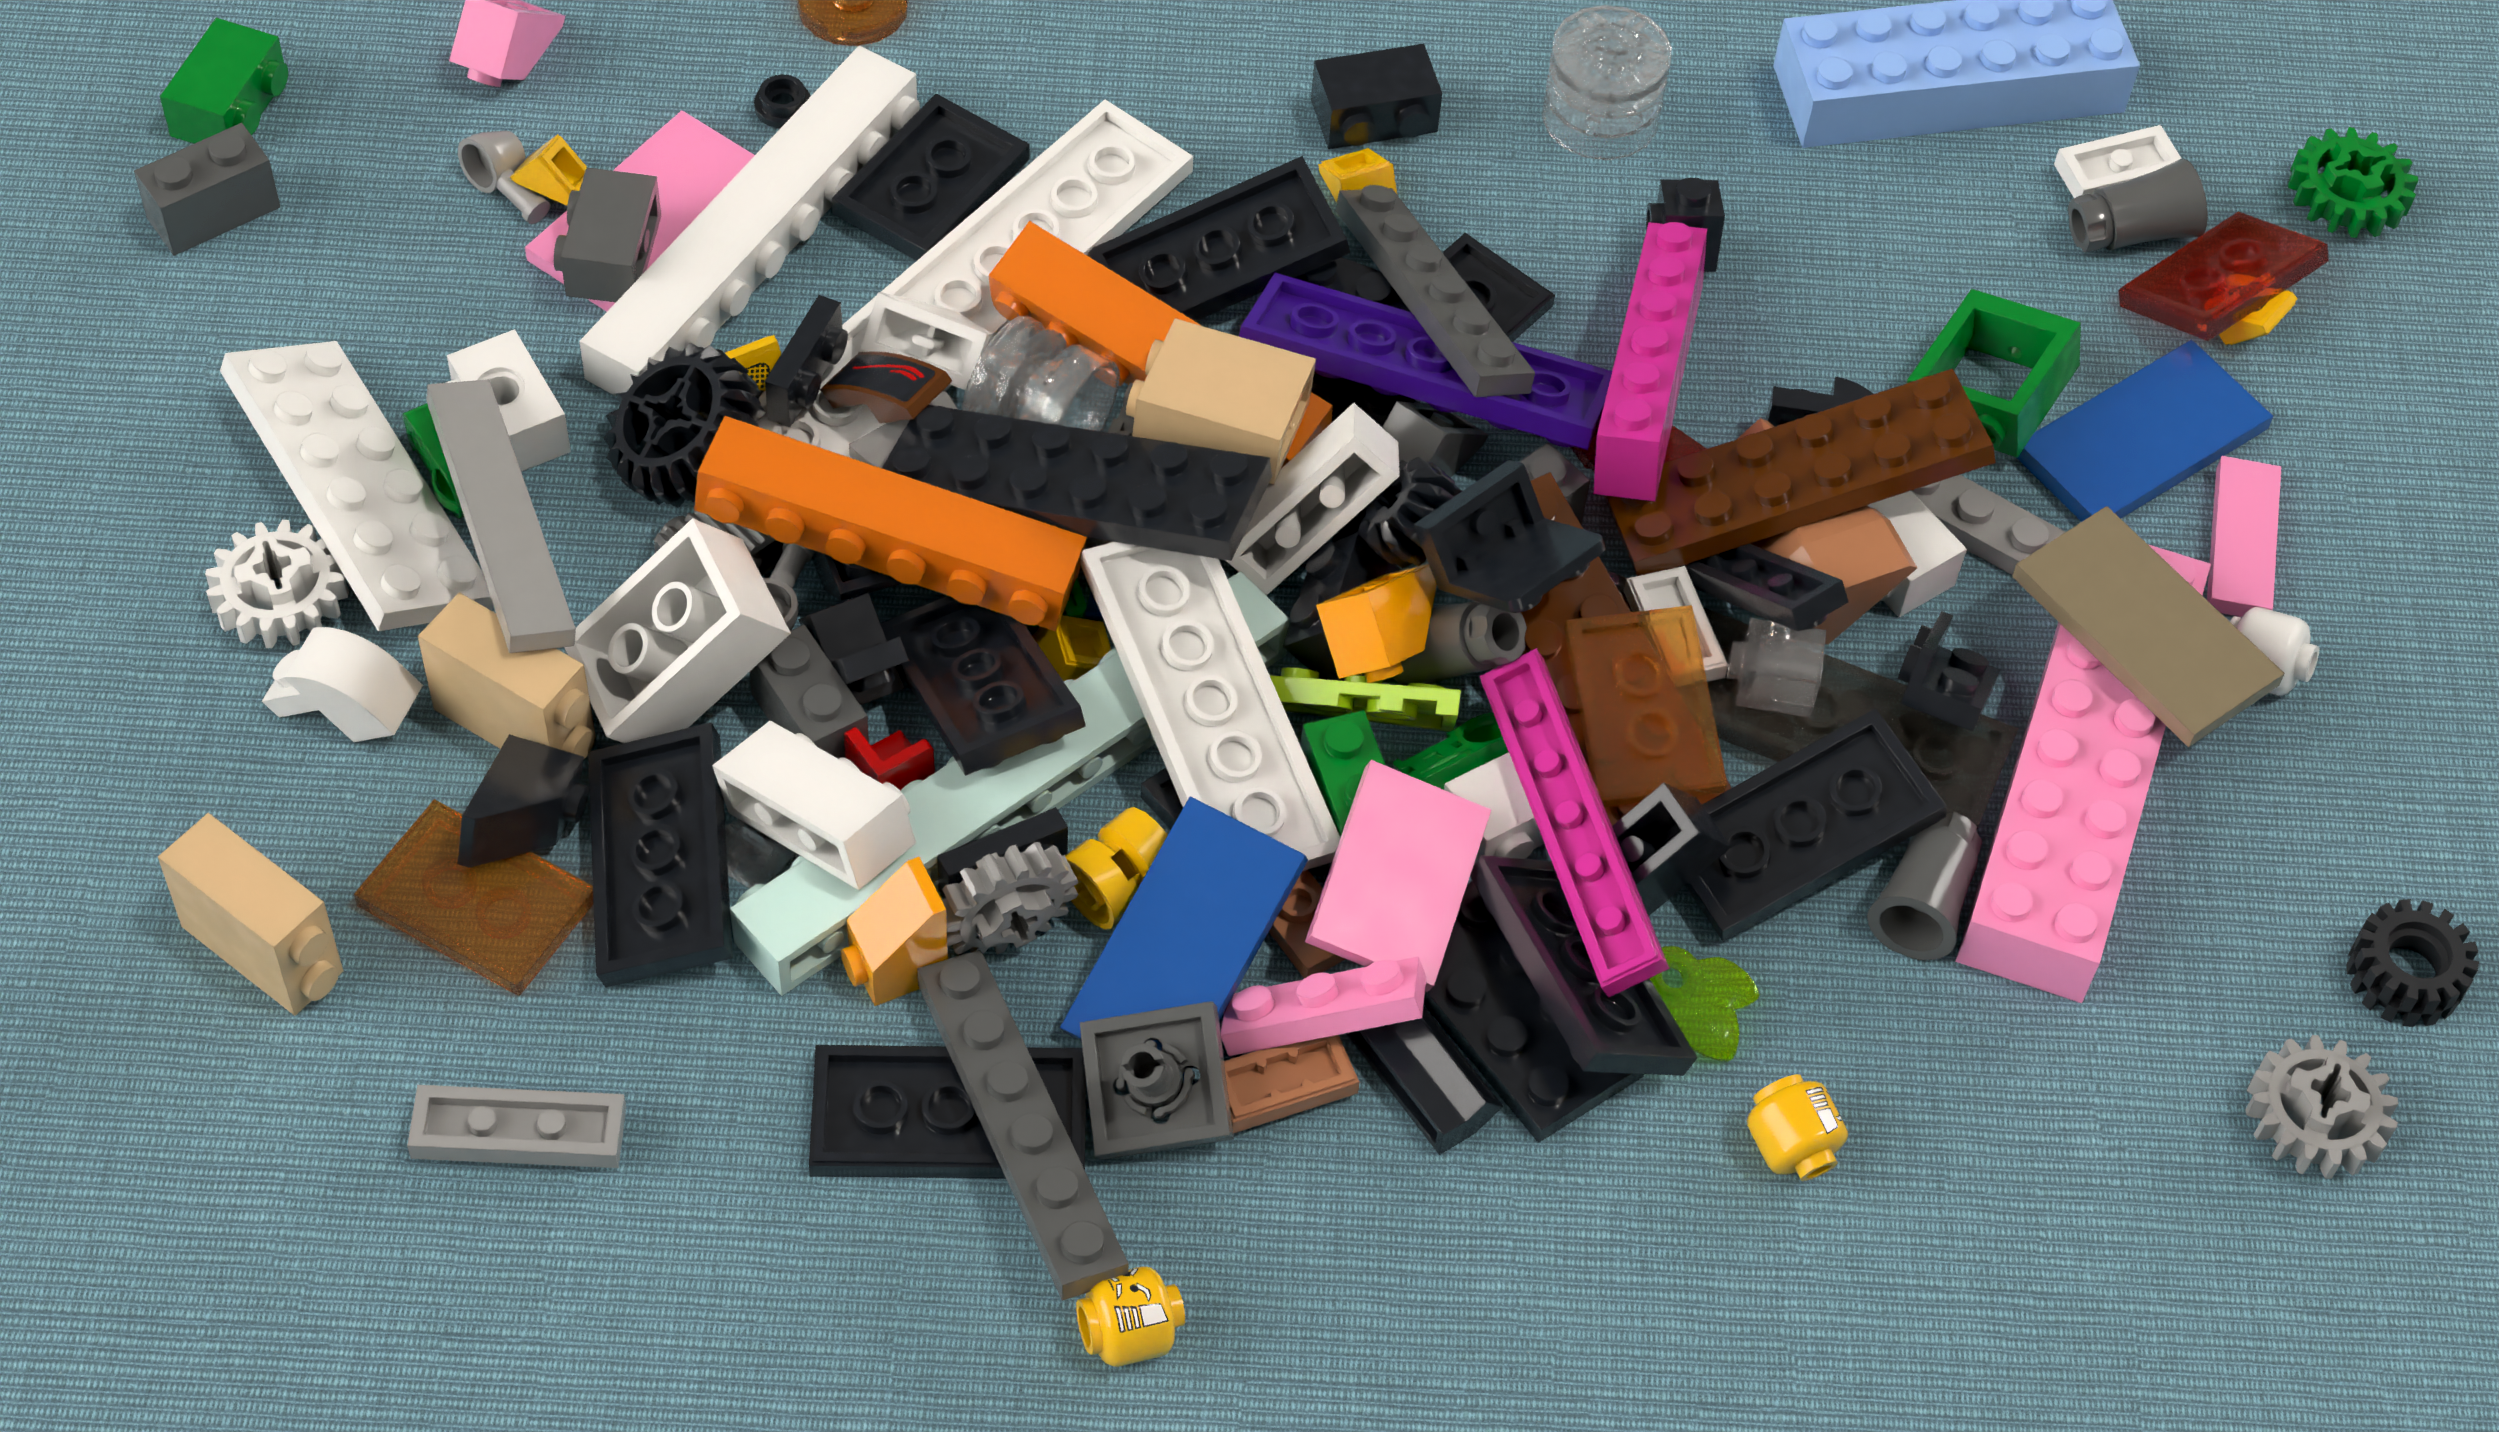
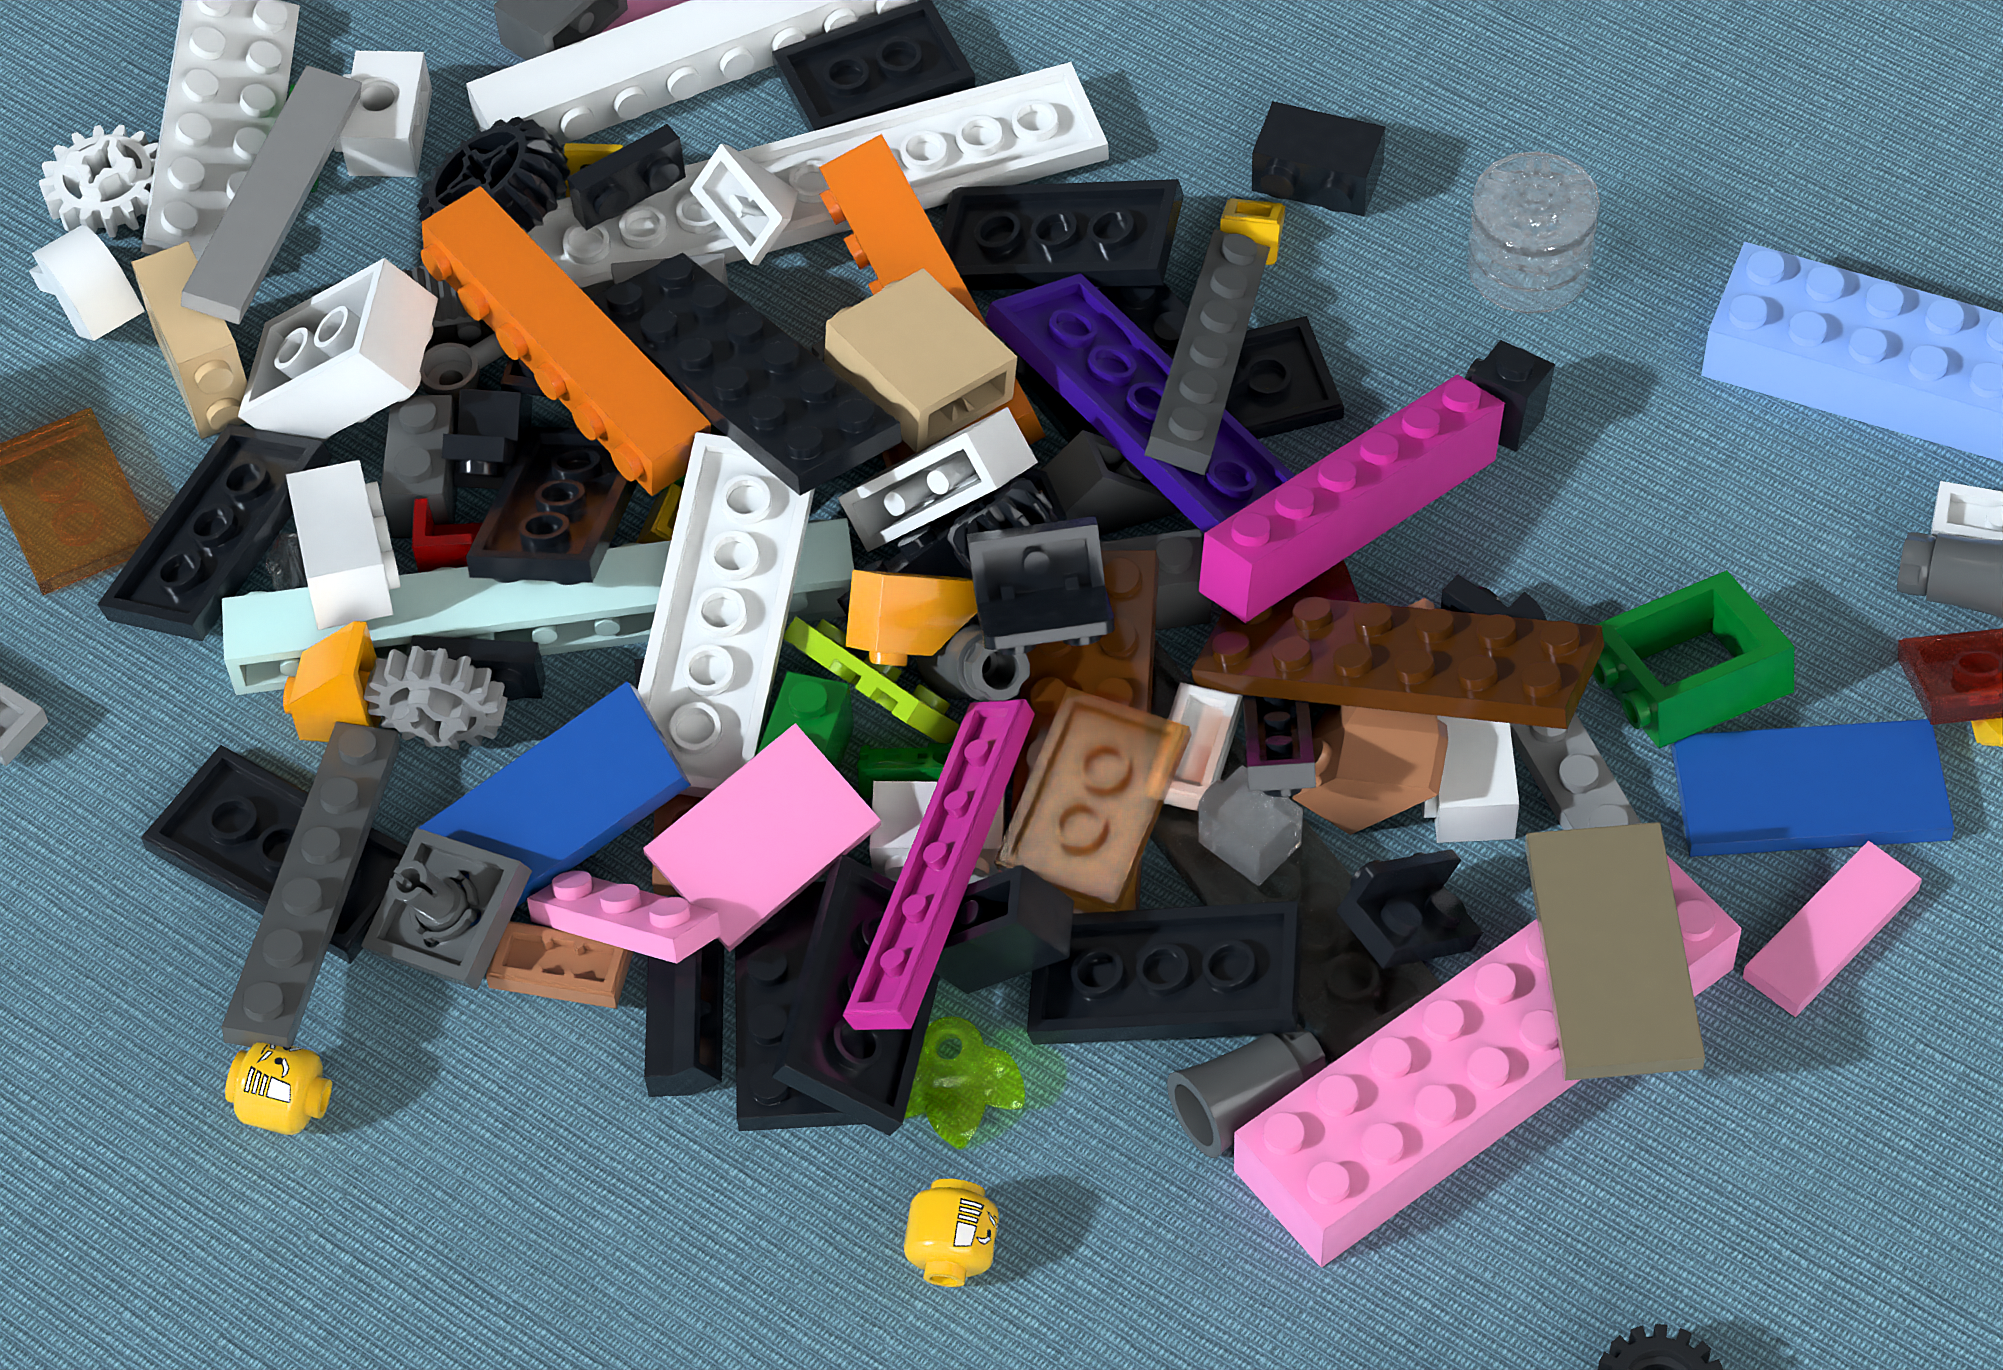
camera: 40 degrees right, 0 degrees up
(522, 802) = (137, 438): black slope -> none
(888, 383) = (670, 225): slope -> none
(1040, 379) = (795, 274): clear wheel -> none
(1114, 865) = (534, 700): yellow wheel -> none
(2283, 641) = (1754, 1040): white head -> none

